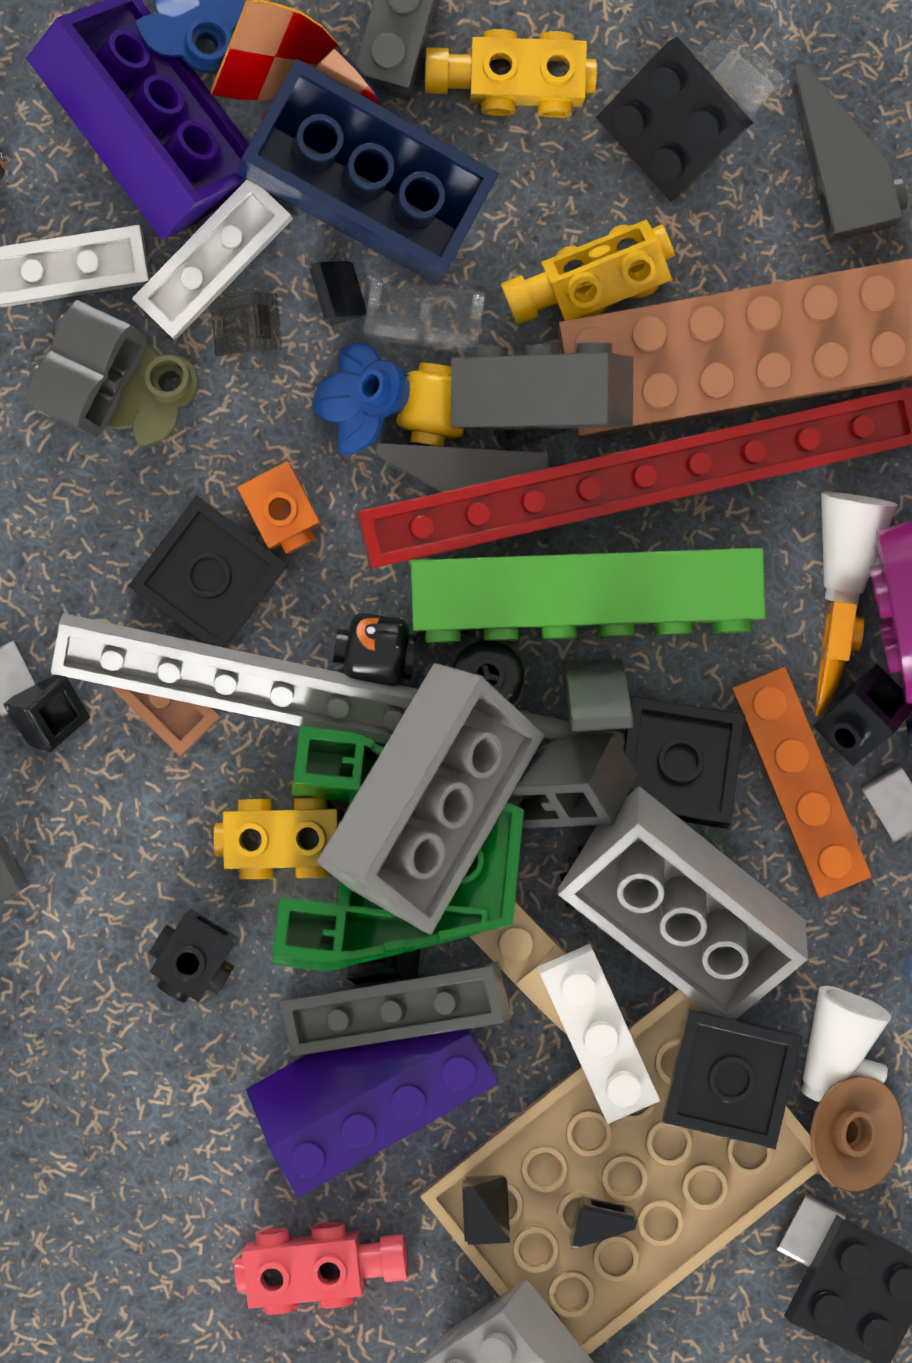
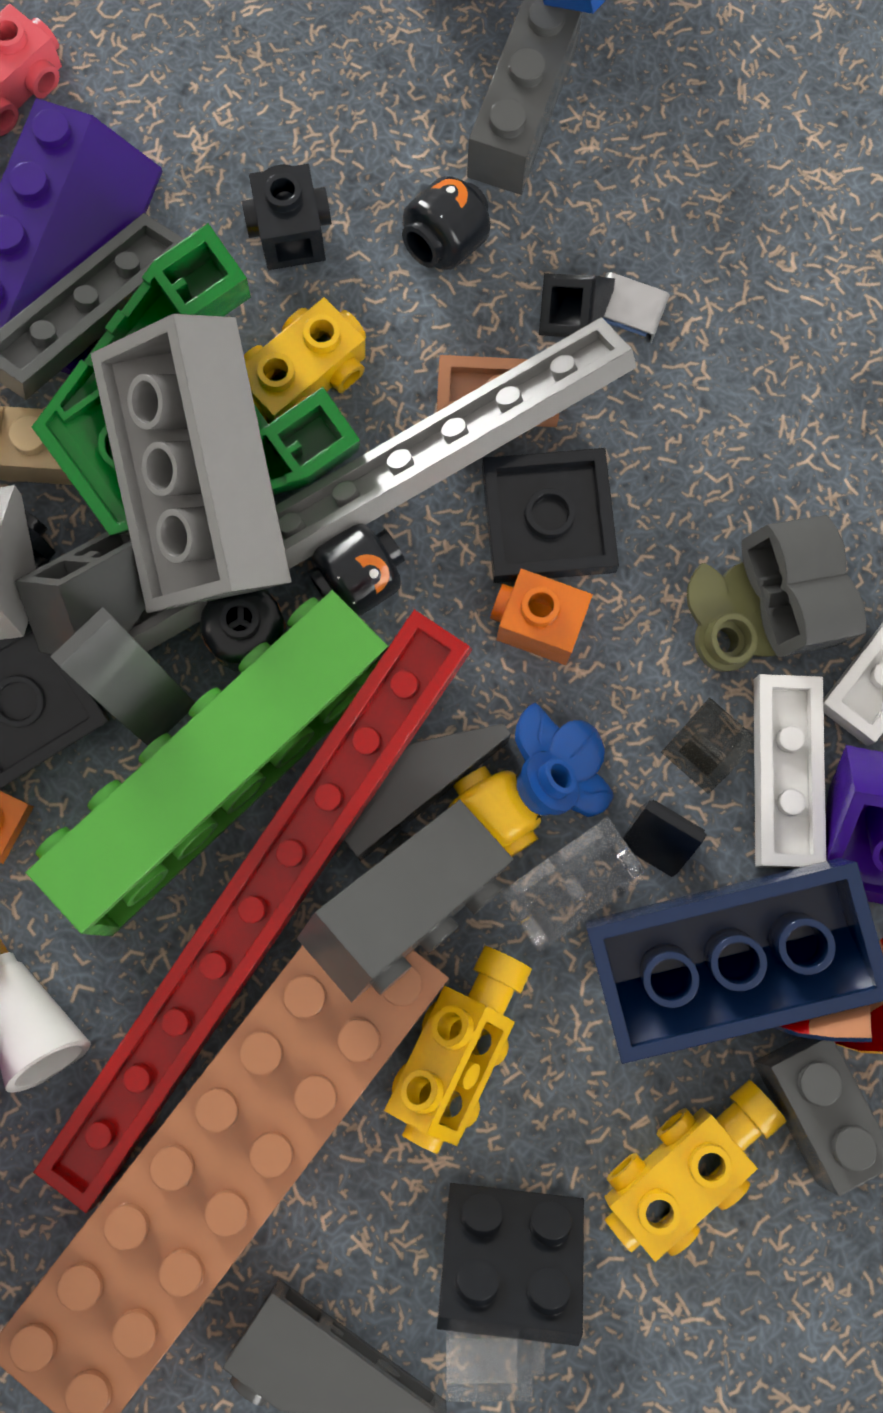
camera: 135 degrees right, 10 degrees down
(84, 852) = (446, 223): none -> black head

